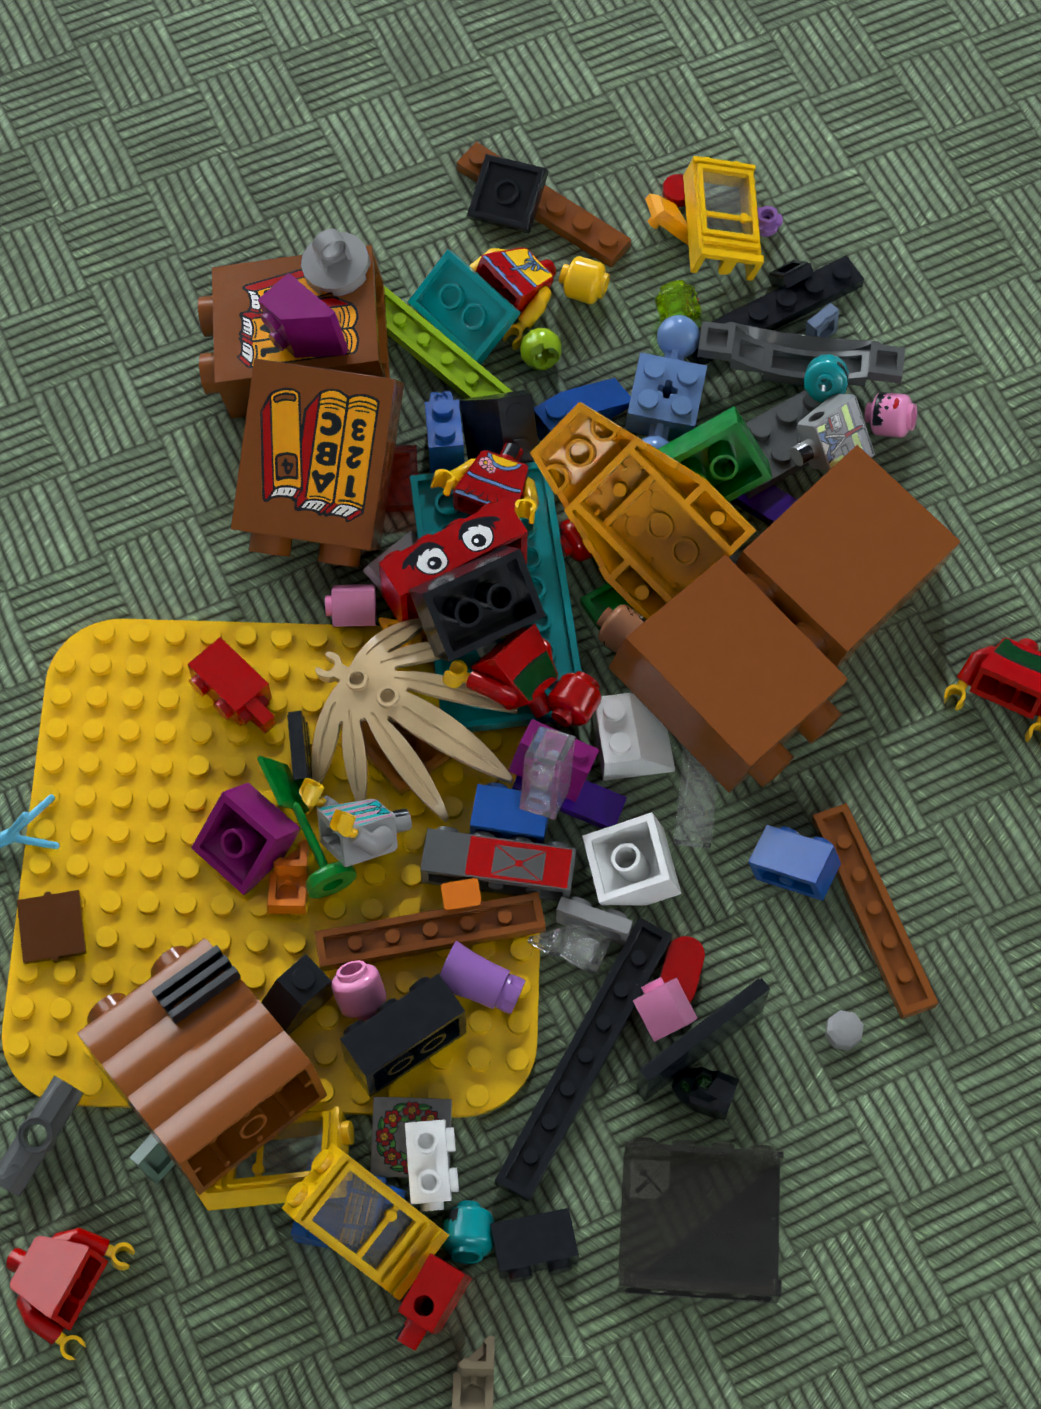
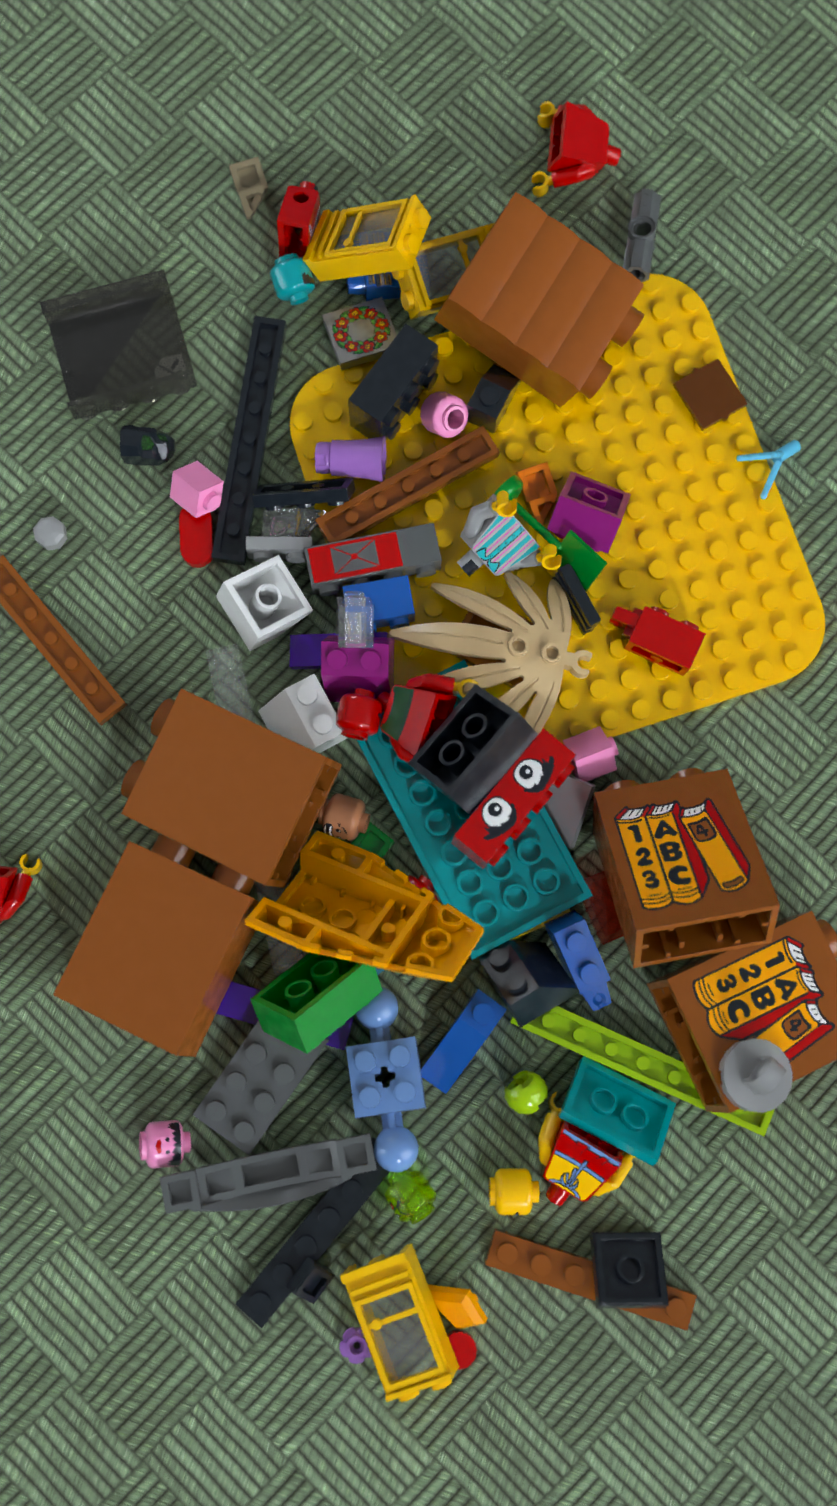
camera: 155 degrees right, 15 degrees up
(191, 980) = (581, 317): black tile -> none
(301, 321) = (760, 983): magenta slope -> none
(428, 1163) = (338, 305): white brick -> none
(461, 894) = (392, 516): orange slope -> none
(490, 480) = (507, 899): torso -> none
(534, 1245) = (239, 287): black brick -> none
(547, 964) = (303, 493): none -> black plate
(702, 1039) = (157, 470): black tile -> none
(795, 861) = (127, 650): brick -> none
(824, 322) = (261, 1228): sand blue tile -> none
(828, 368) = (234, 1147): teal head -> none
(831, 433) = (210, 1084): torso -> none

